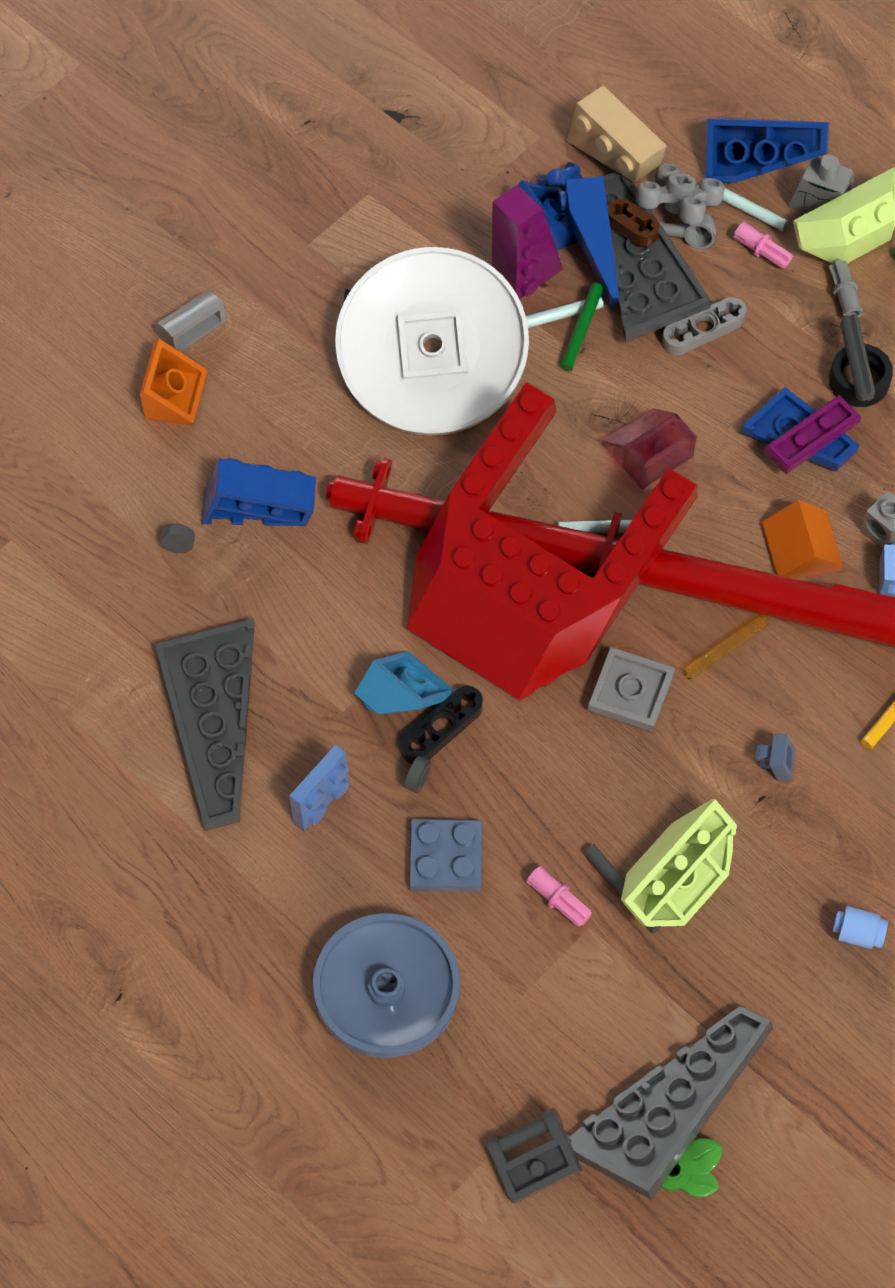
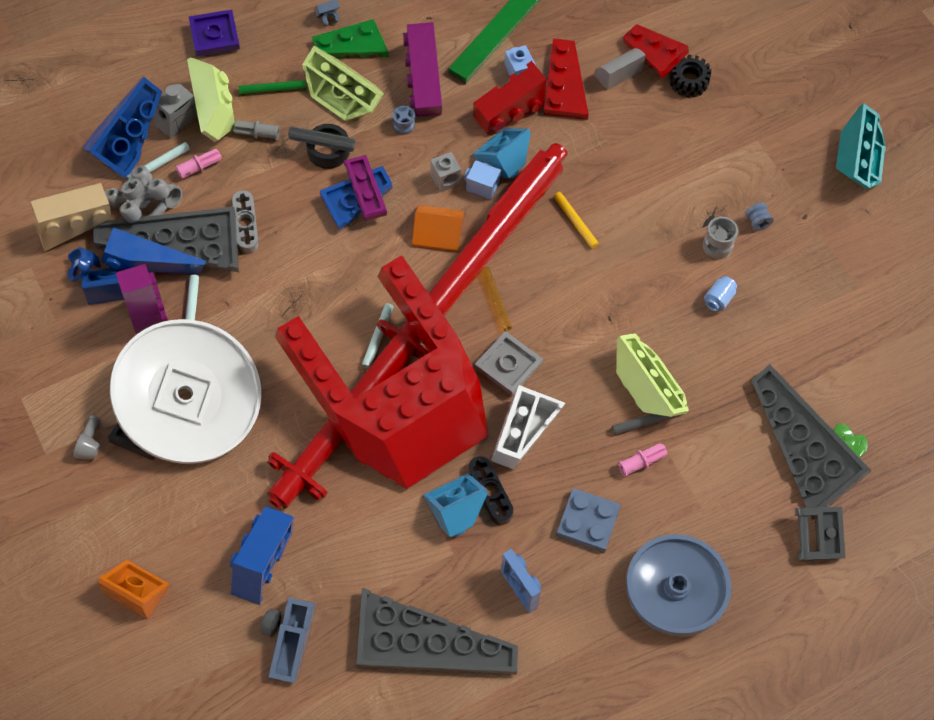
camera: 75 degrees left, 0 degrees up
(167, 568) = (292, 639): none -> sand blue slope
(191, 321) = (77, 557): light grey brick -> none
(327, 274) = (86, 446): none -> light grey bar
(418, 774) = (525, 516): dark grey tile -> none
(541, 729) = (524, 424): none -> white wedge
(581, 327) = (212, 295): green bar -> none
(633, 221) = (146, 229): reddish brown beam -> none
(652, 445) = (328, 285): clear pink slope -> none
(777, 757) = (589, 295): sand blue tile -> none

